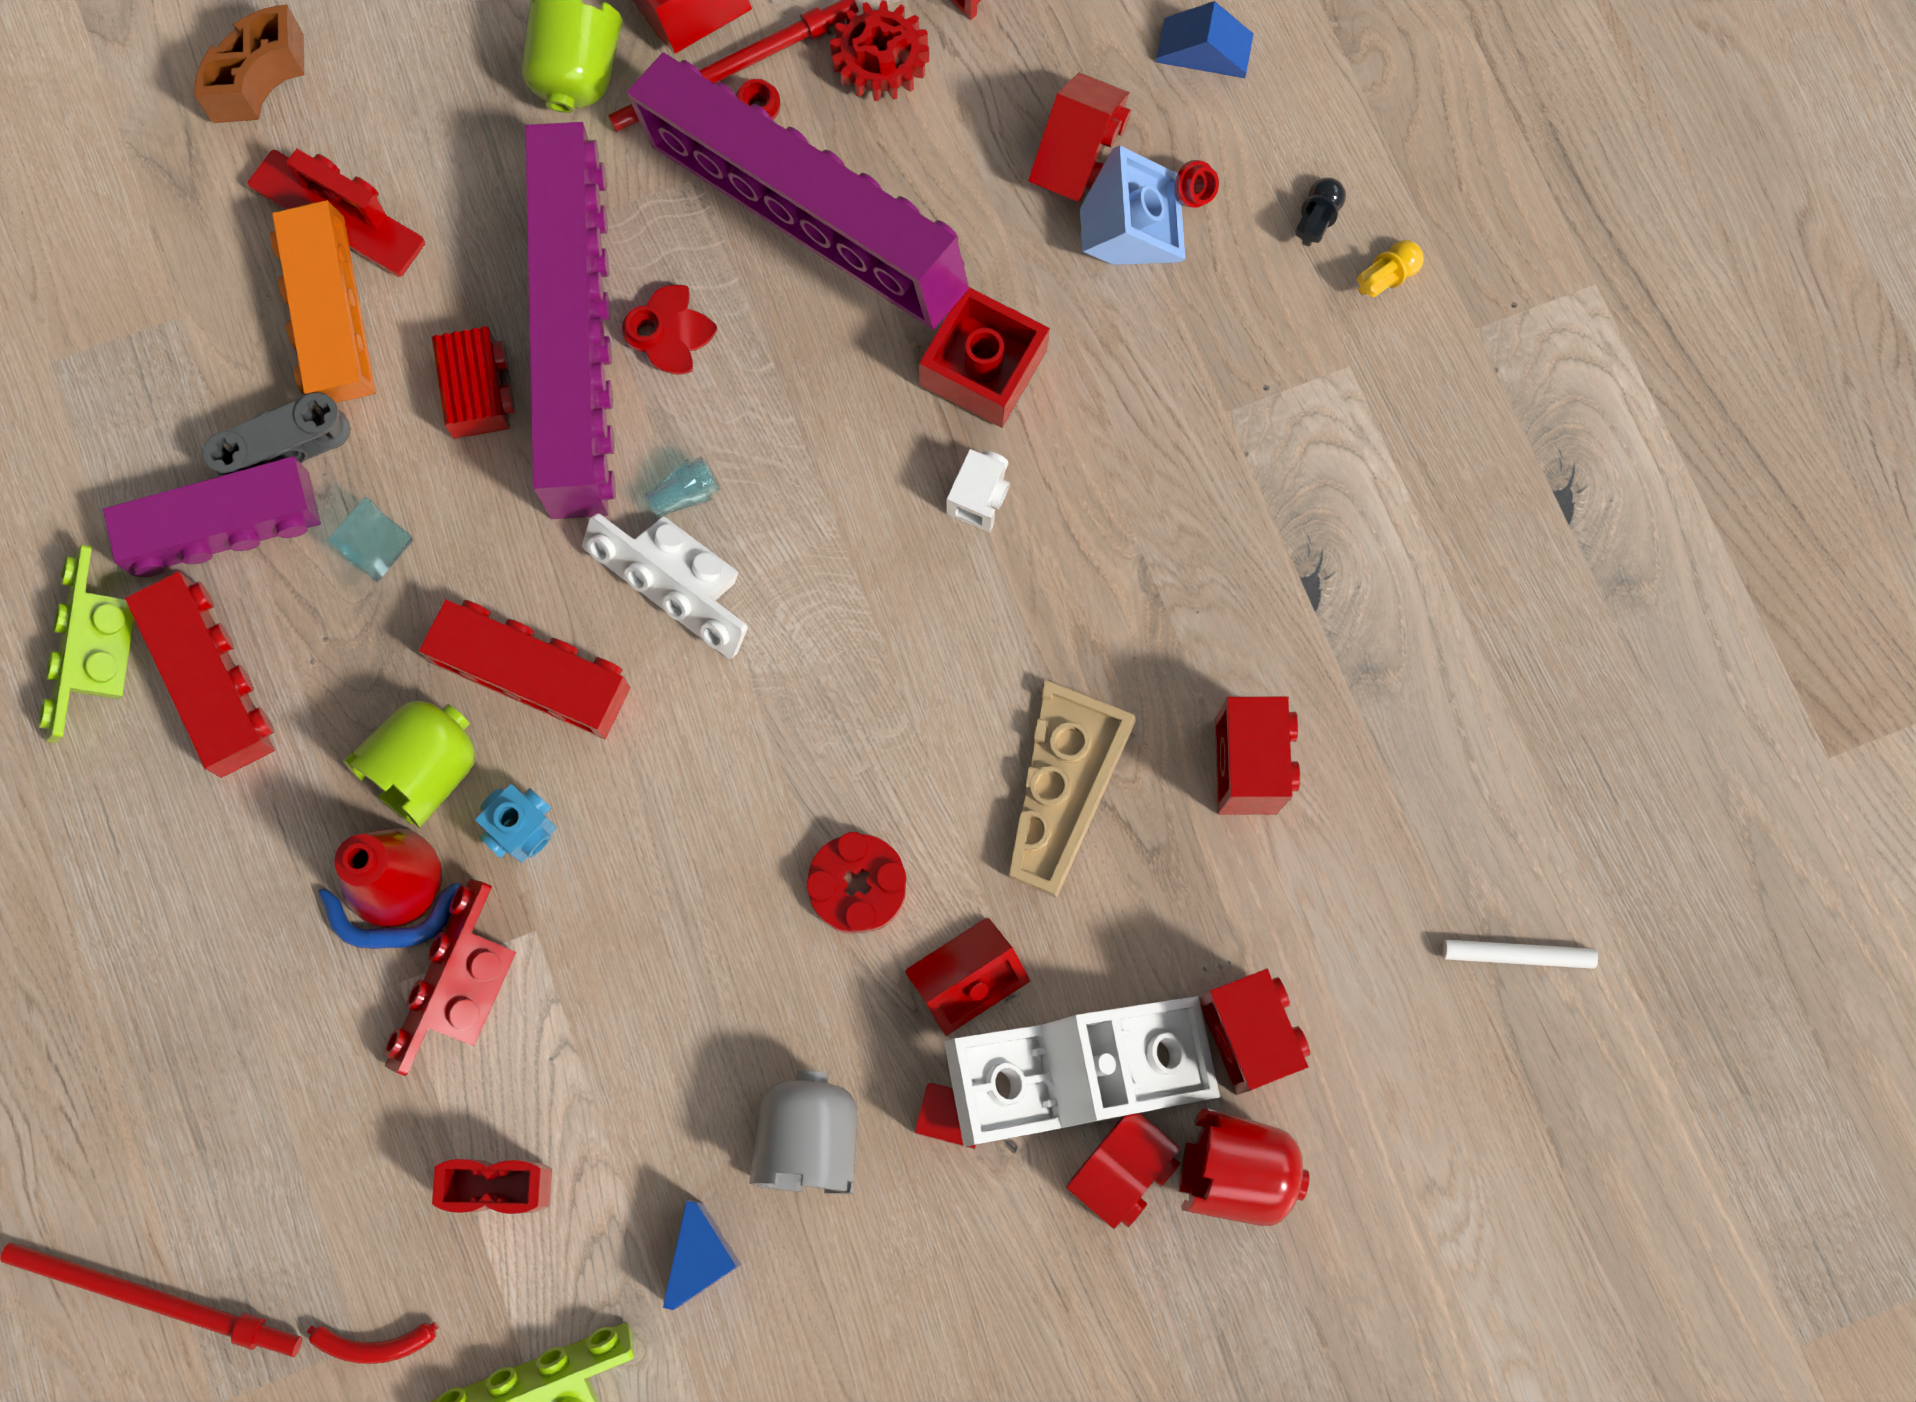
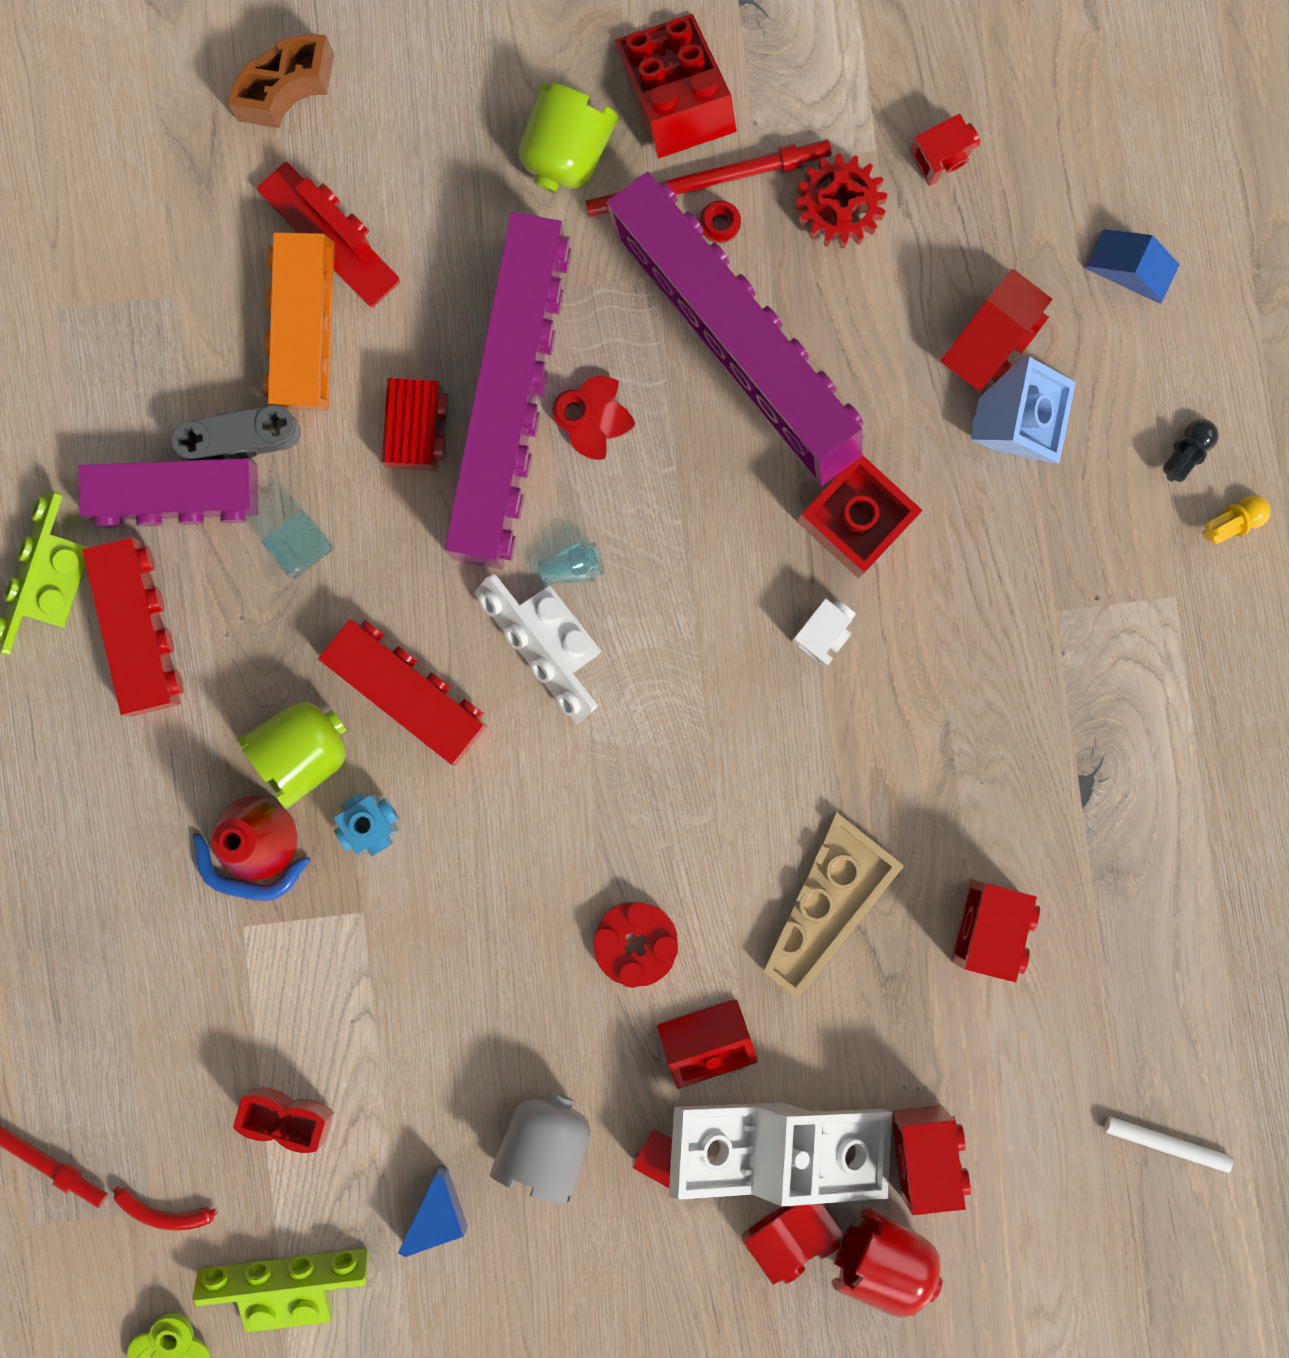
camera: 20 degrees right, 10 degrees up
(458, 984) = (289, 944): bracket -> none
(1196, 184) = (1088, 398): red plate -> none

